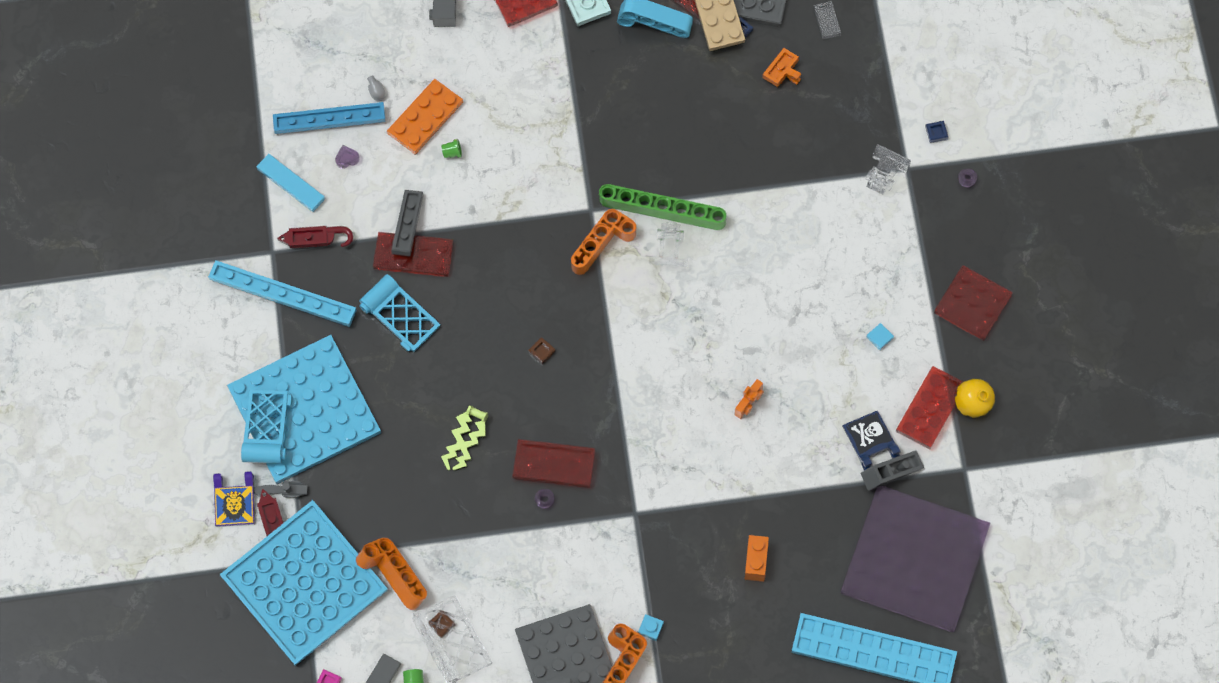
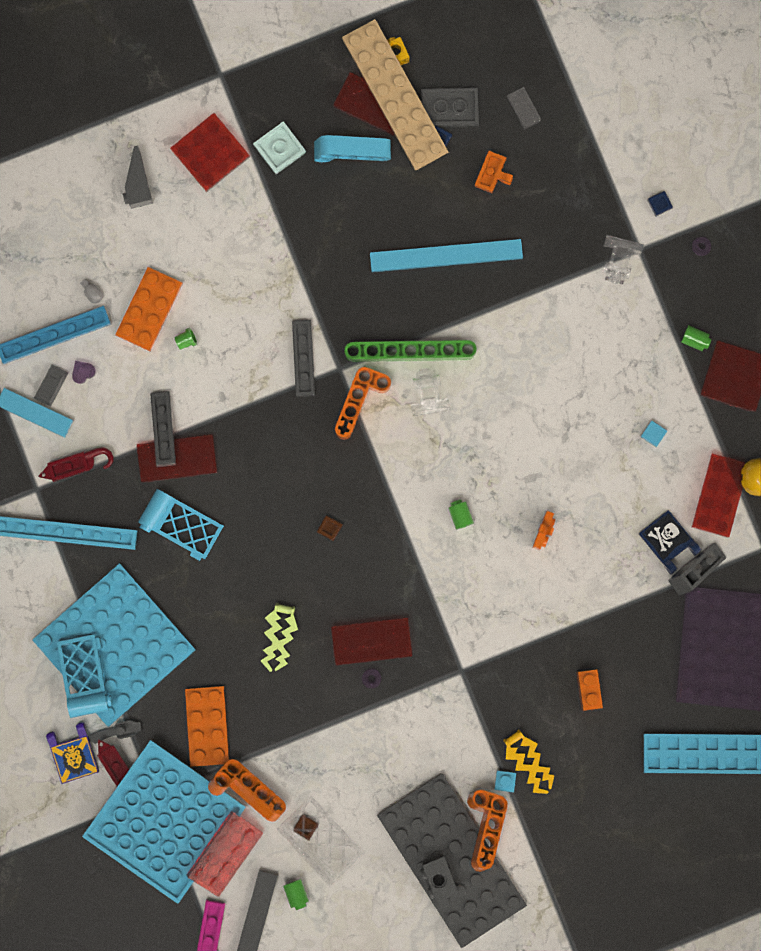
camera: 15 degrees left, 15 degrees up
(313, 162) = (51, 385): none -> dark grey tile
(354, 628) = (224, 854): none -> clear red plate
(371, 504) = (207, 726): none -> orange plate
(558, 192) = (303, 358): none -> dark grey tile
(672, 366) = (460, 514): none -> bright green brick
(681, 622) = (534, 768): none -> yellow piece
(719, 132) = (446, 255): none -> medium azure tile
(942, 258) = (696, 338): none -> bright green brick

